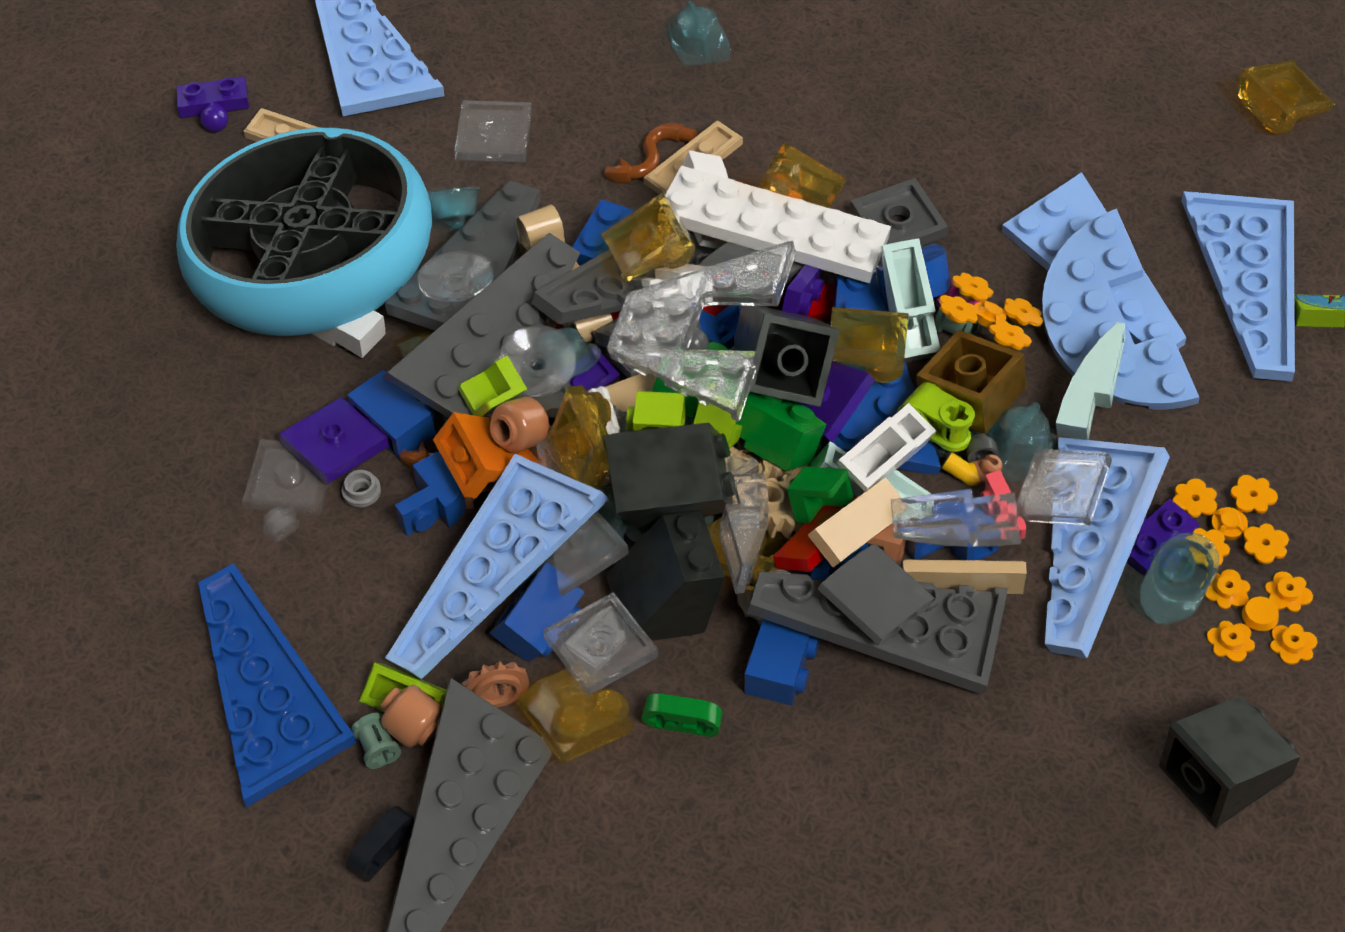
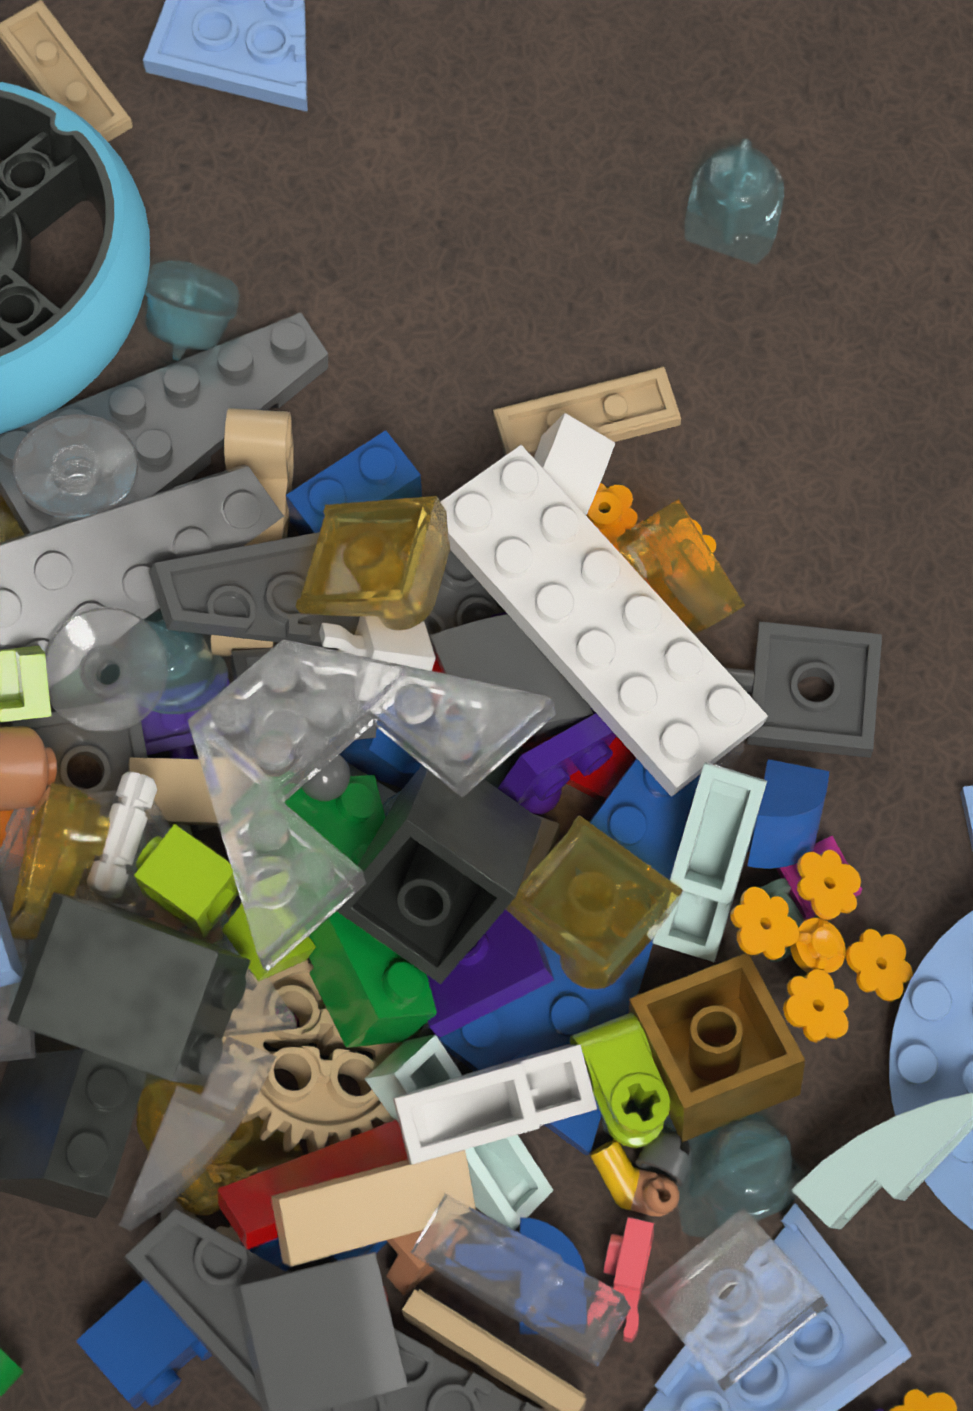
camera: 30 degrees right, 15 degrees up
(493, 131) = (333, 213): clear plate -> none
(670, 131) = (473, 383): dark orange animal -> none
(816, 488) = (348, 1116): green panel -> none

